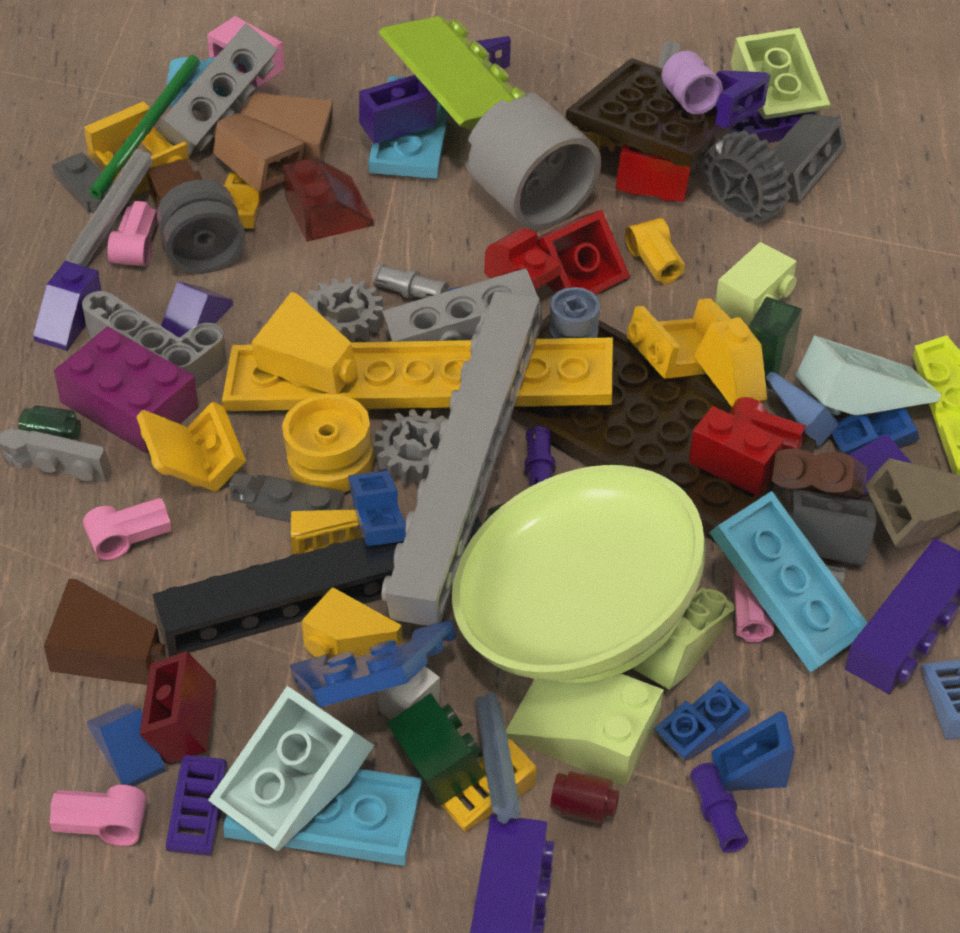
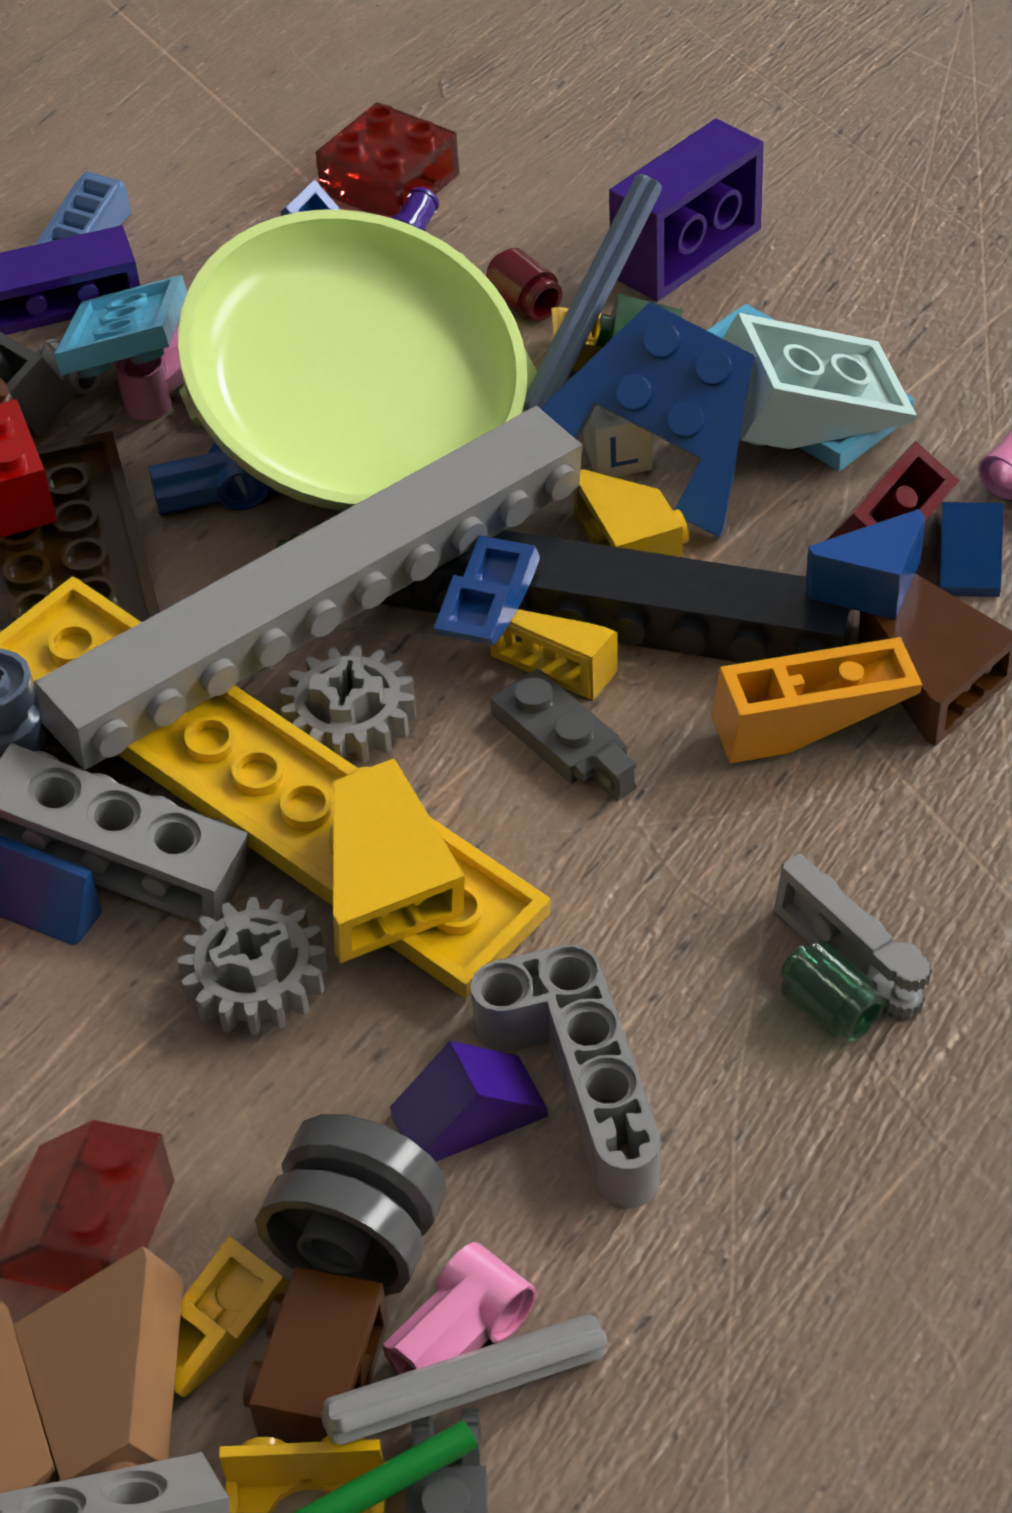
camera: 140 degrees left, 0 degrees up
(61, 309) = (666, 1215): slope -> none
(114, 531) = (830, 785): bright pink piece -> none
(118, 379) = (683, 987): magenta brick -> none
(152, 552) = (803, 697): none -> light orange slope
(154, 618) = (868, 566): none -> blue slope
(195, 776) = (955, 435): dark purple slope -> none
(200, 454) = (641, 840): yellow bracket -> none
(328, 441) = (465, 740): yellow wheel -> none
(408, 283) = (110, 970): light grey pin -> none
(800, 866) = (384, 158): none -> clear red brick

